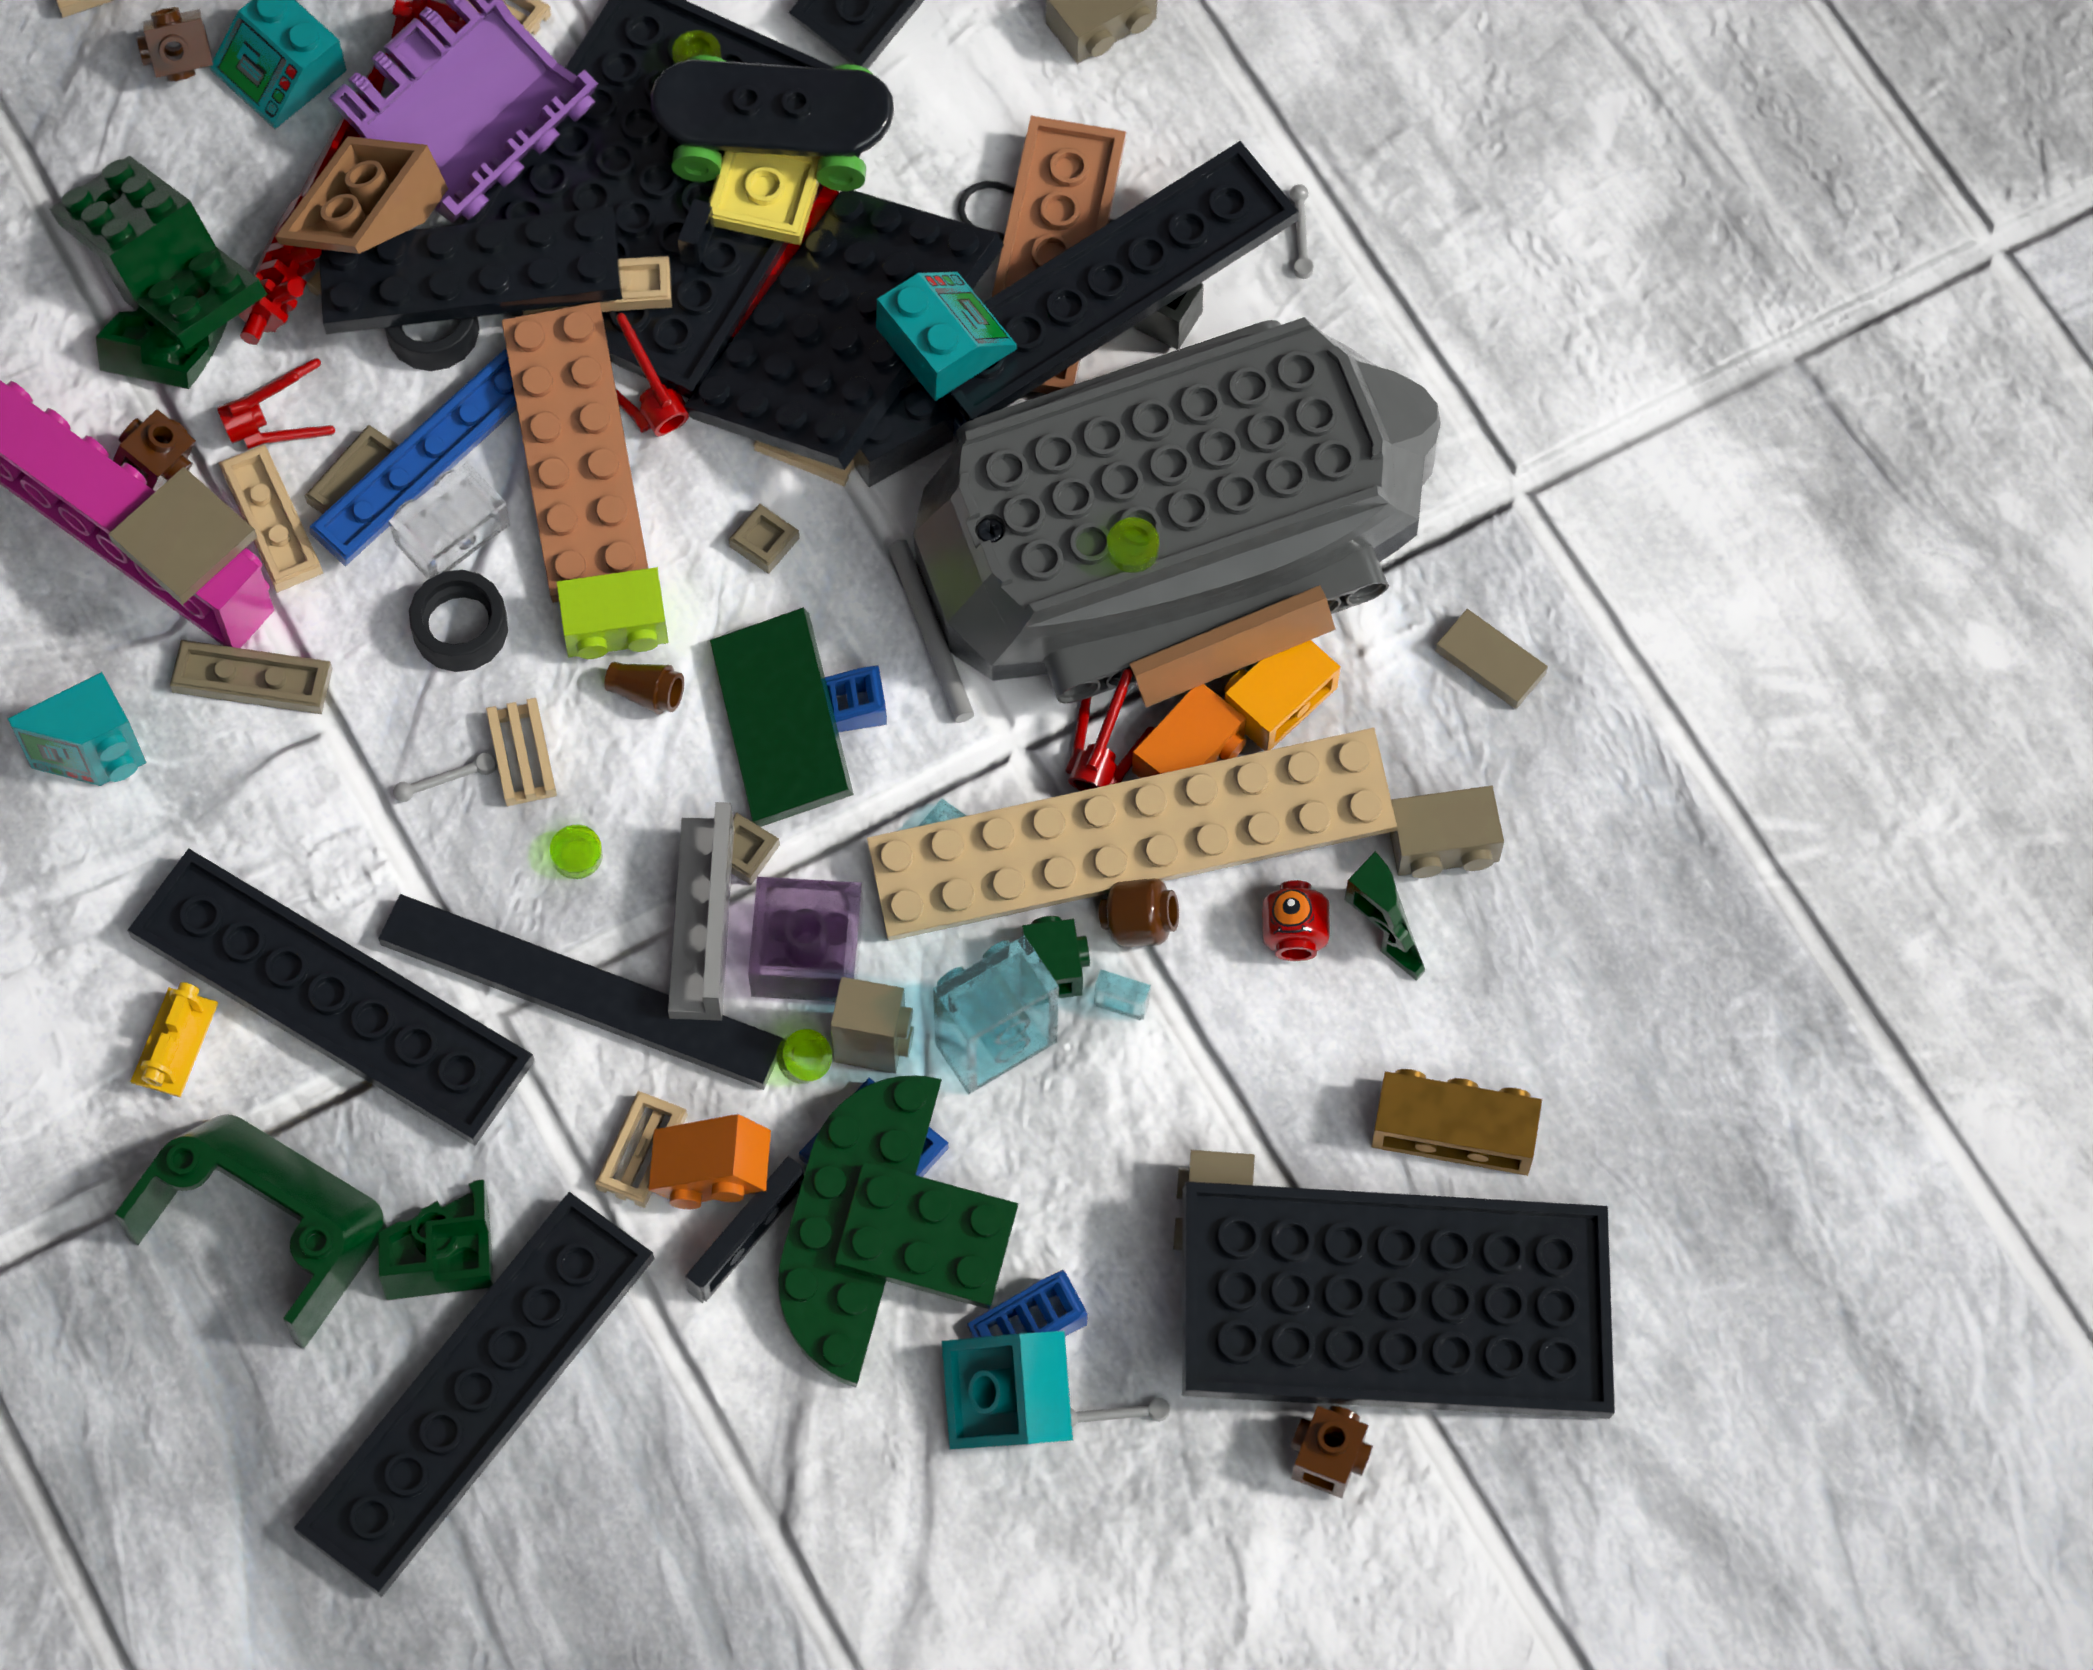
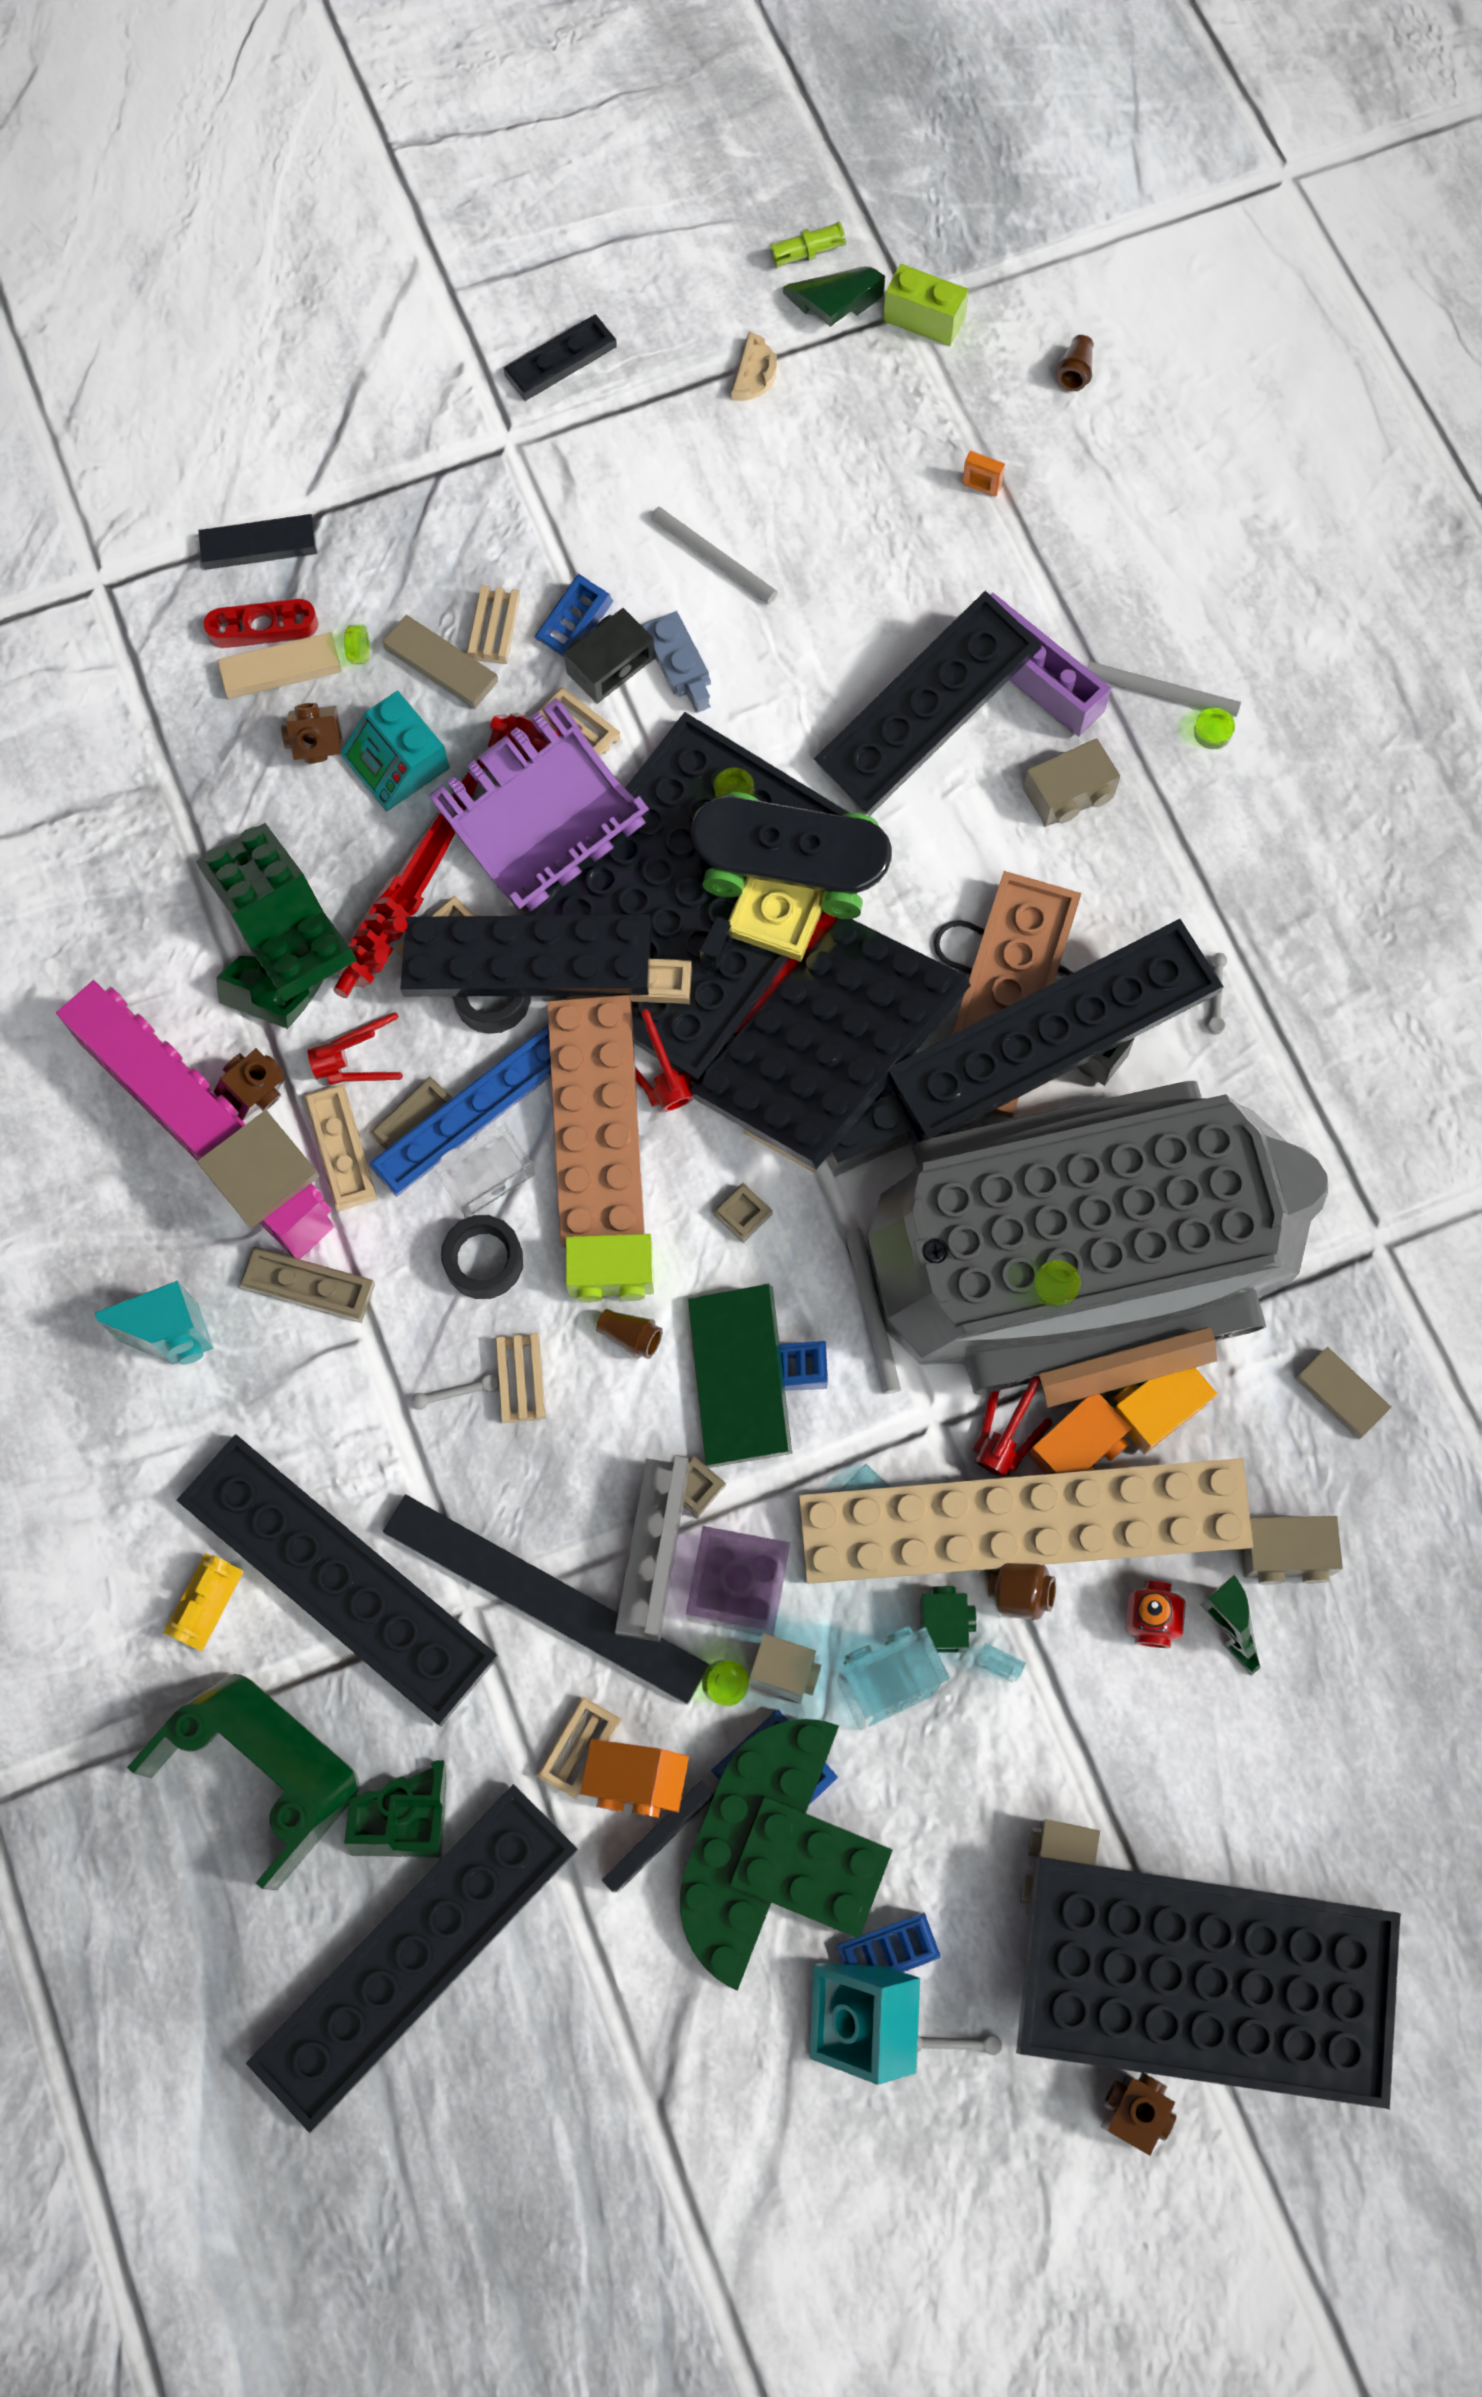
camera: 10 degrees right, 5 degrees up
(366, 197) = (447, 885): medium nougat slope -> none
(576, 851) = (555, 1472): clear neon green tile -> none
(941, 330) = (912, 1060): teal slope -> none
(1457, 1121) = (1277, 1815): pearl gold brick -> none

